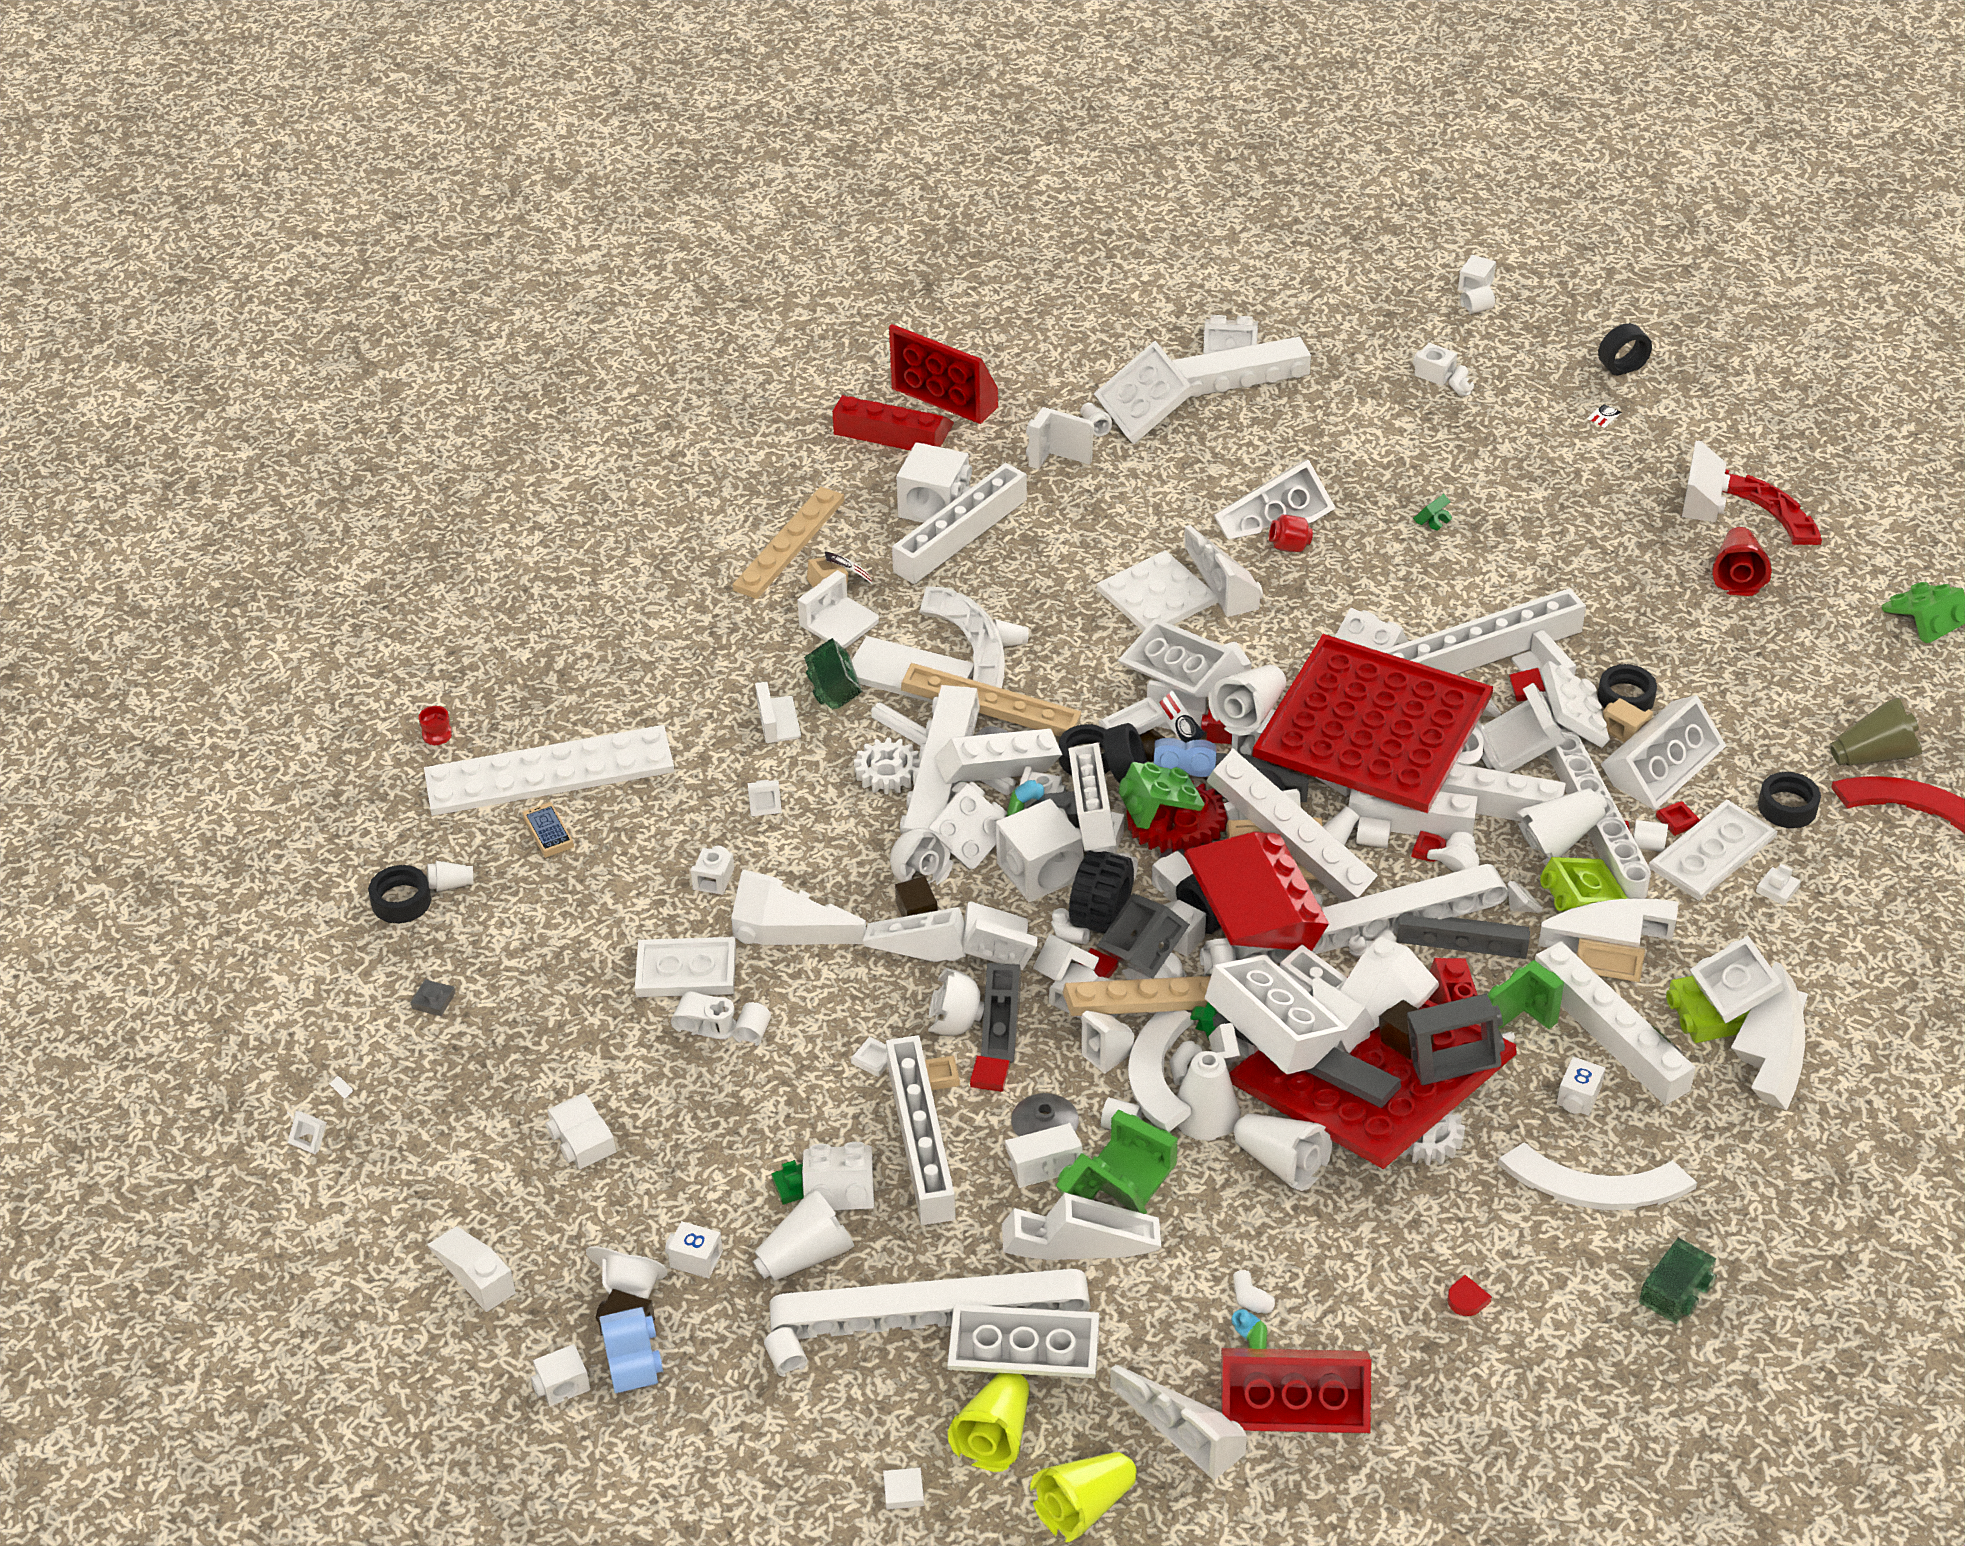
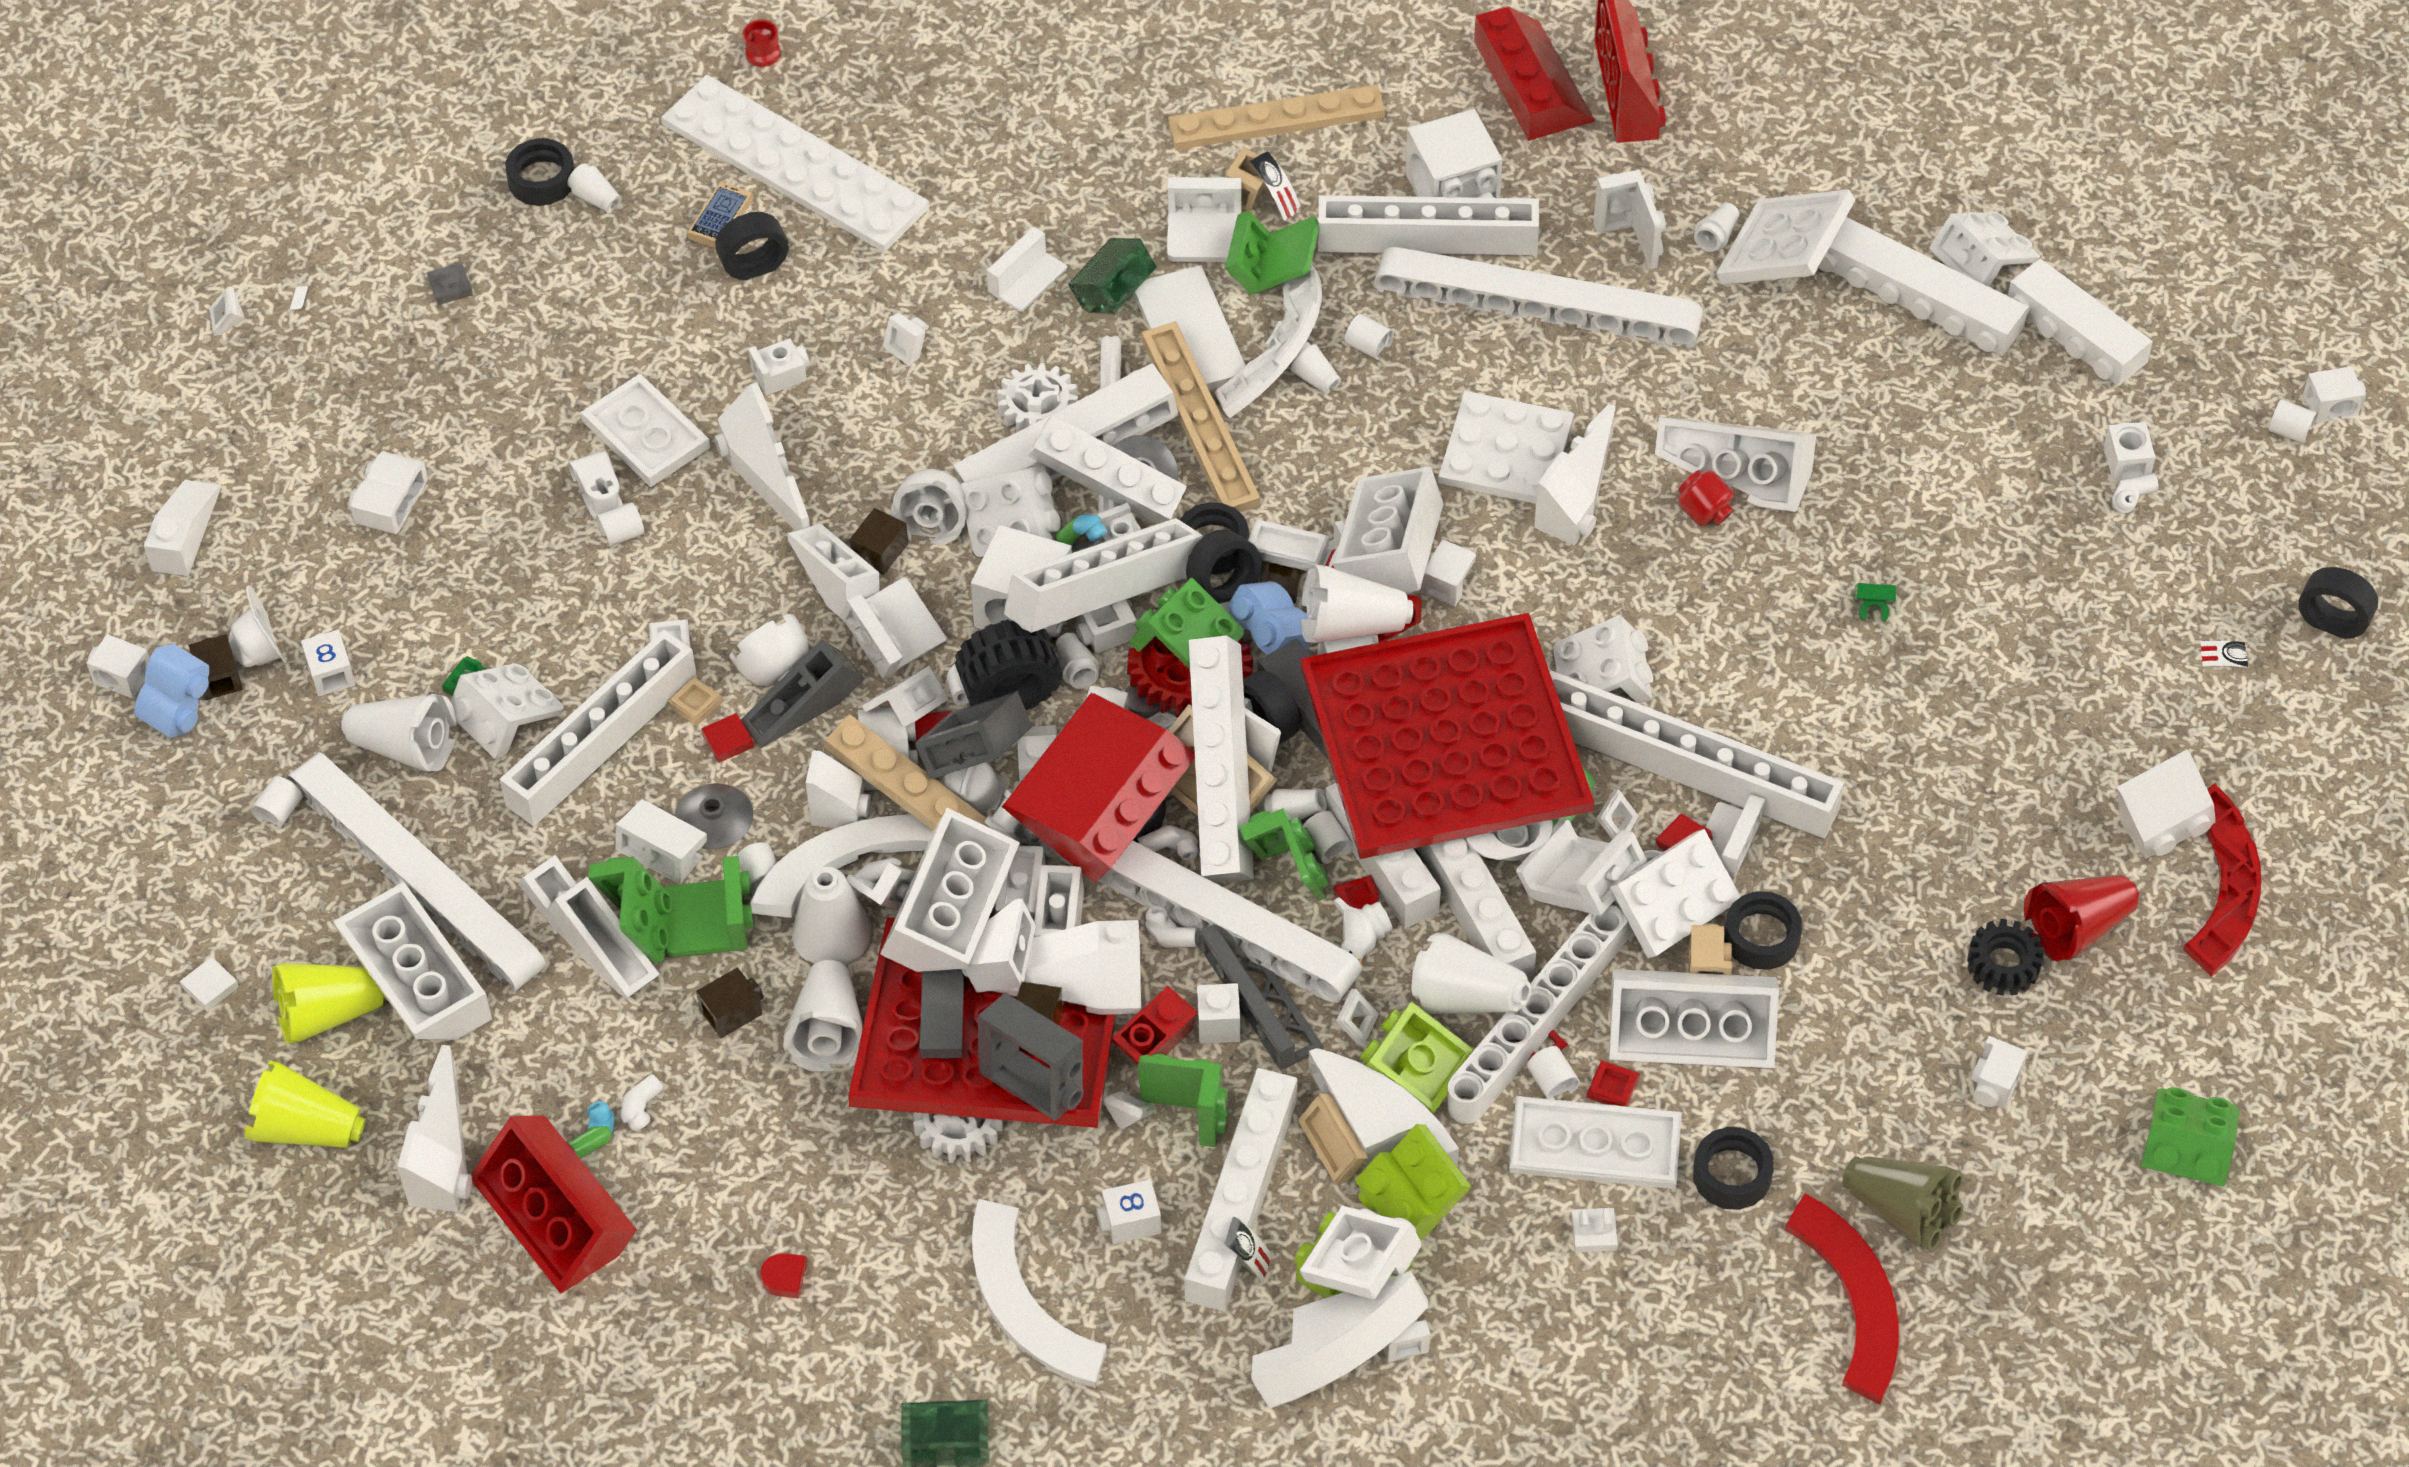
camera: 50 degrees right, 10 degrees up
(605, 820) = (742, 231): none -> black tyre
(903, 596) = (1267, 259): none -> bright green bracket
(1010, 597) = (1368, 336): none -> white beam
(1060, 514) = (1539, 295): none -> white beam
(1219, 1194) = (730, 1002): none -> dark brown brick
(1328, 328) = (2080, 323): none -> white brick
(1386, 841) = (1278, 832): none -> bright green bracket
(1469, 946) = (1218, 1013): none -> white brick
(1683, 936) = (1413, 1181): none -> lime plate
(1741, 597) = (2008, 937): none -> black tyre
(1820, 655) = (1998, 1072): none -> white brick

